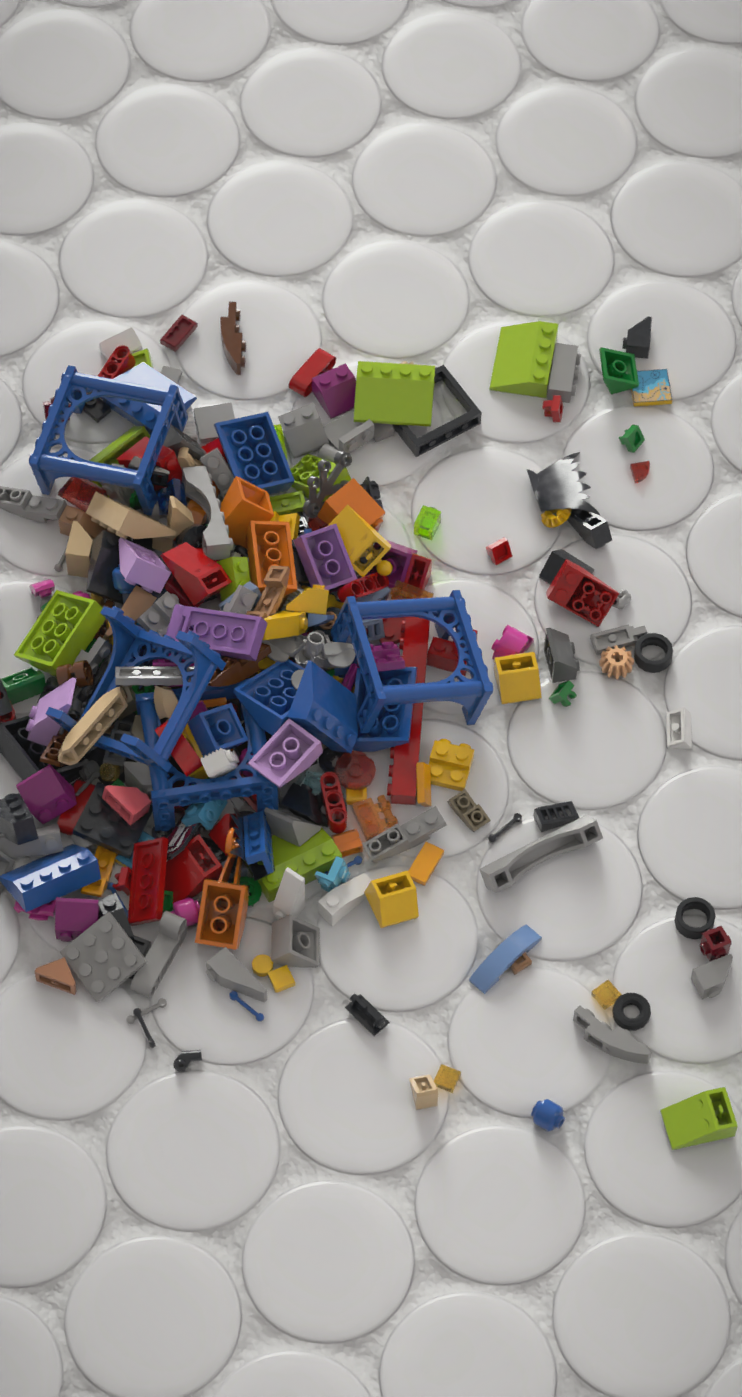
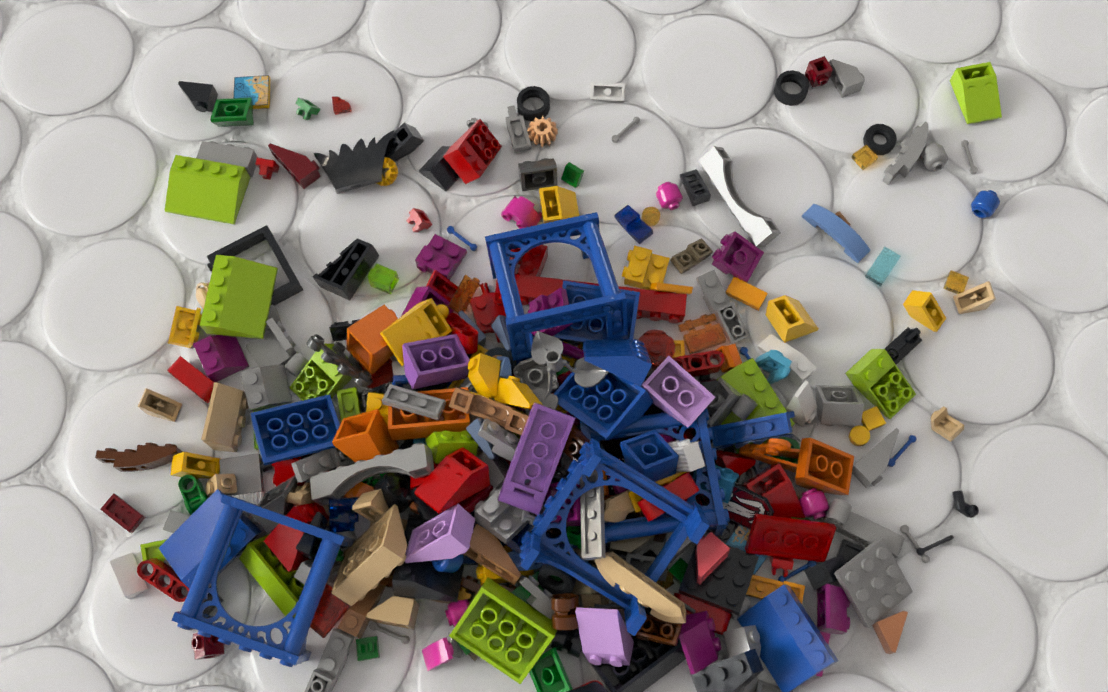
camera: 85 degrees left, 10 degrees up
(50, 537) = (367, 648): none -> green tile
(196, 383) = (193, 497): none -> green piece
(204, 406) = (224, 482): none -> tan bracket
(223, 383) = (194, 464): none -> yellow slope
(269, 395) = (225, 418): none -> tan slope
(274, 1046) = (945, 424): none -> tan bracket
(278, 540) = (414, 402): none -> light grey tile
(284, 346) = (159, 405): none -> tan slope
(285, 842) = (744, 406): none -> light grey beam
(321, 988) = (881, 382): none -> lime slope
(367, 354) = (184, 327): none -> yellow bracket
(408, 1037) = (924, 309): none -> yellow slope
(434, 490) = (348, 270): none -> black wedge
(455, 573) = (440, 256): none -> magenta plate
(464, 1003) = (882, 266): none -> clear light blue tile
(466, 851) = (737, 256): none -> magenta plate
(471, 604) = (450, 230): none -> blue hinge
(505, 755) = (633, 225): none -> clear blue slope
(516, 772) = (651, 216): none -> clear yellow tile
(517, 818) = (695, 218): black hinge -> none
(539, 785) = (669, 195): none -> dark pink head
(555, 437) = (297, 165): none -> dark red slope
(597, 1112) = (973, 170): none -> light grey hinge
(607, 1063) = (934, 157): none -> light grey head
(616, 738) = (615, 138): none -> light grey hinge

